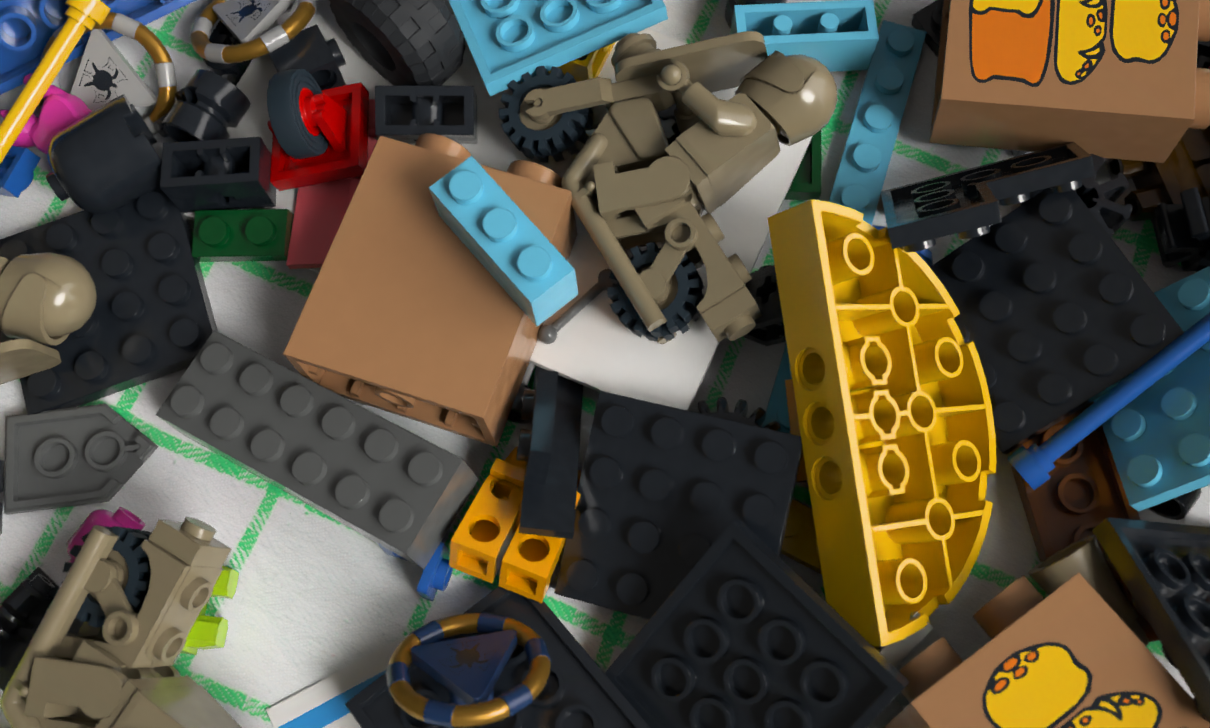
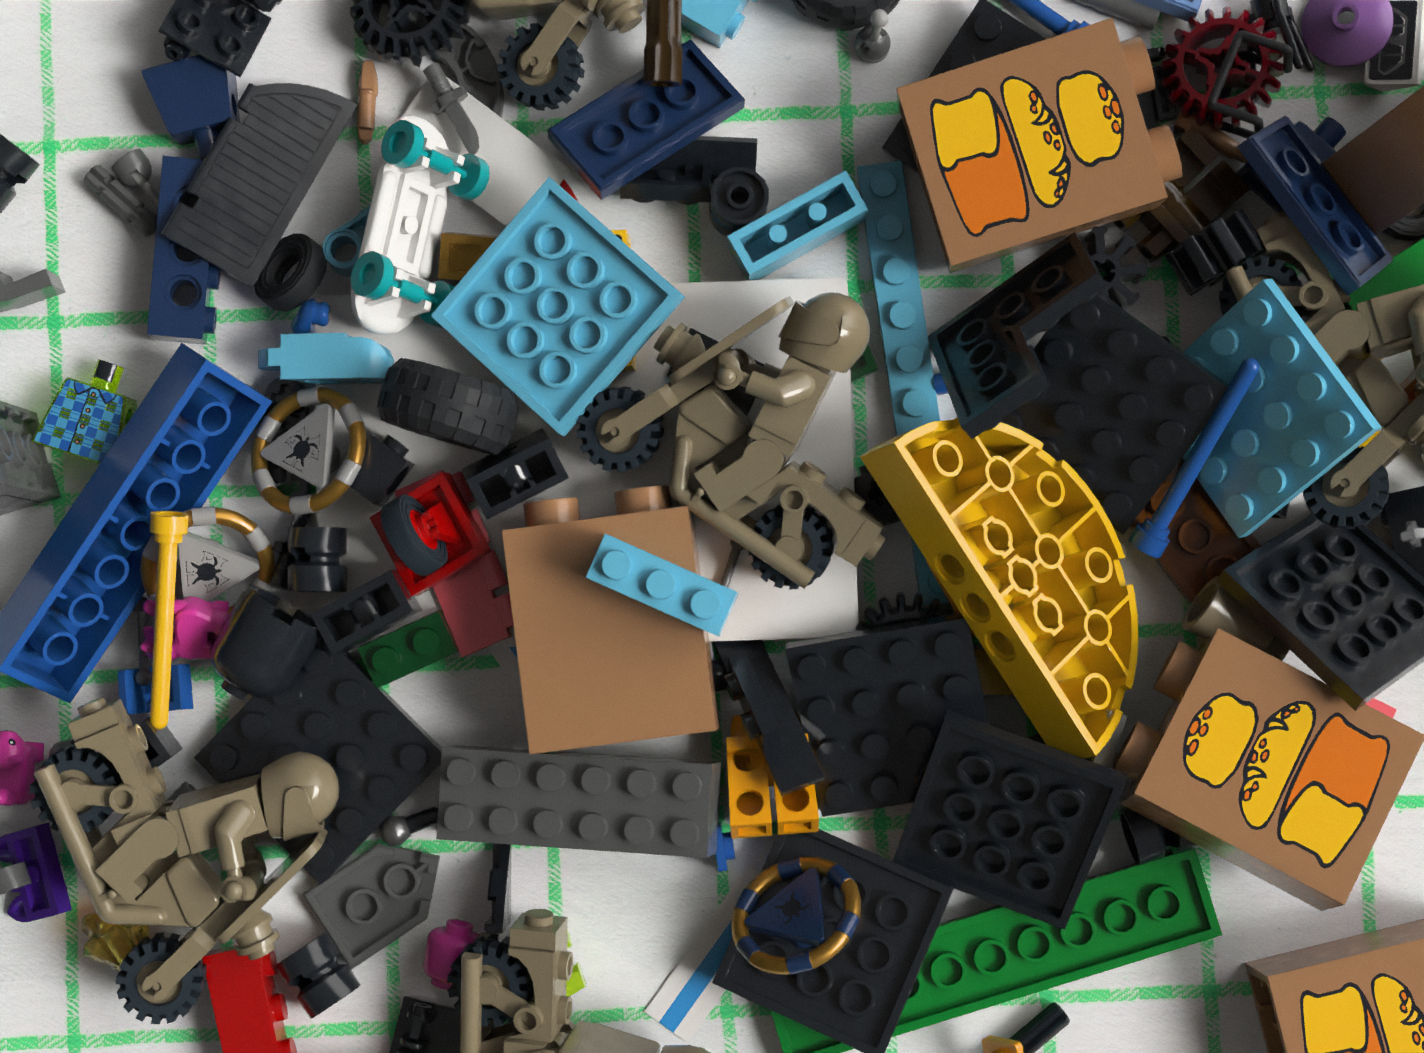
camera: 25 degrees left, 15 degrees up
(134, 400) = (398, 829): none -> piece
(196, 496) = (500, 890): none -> black tile

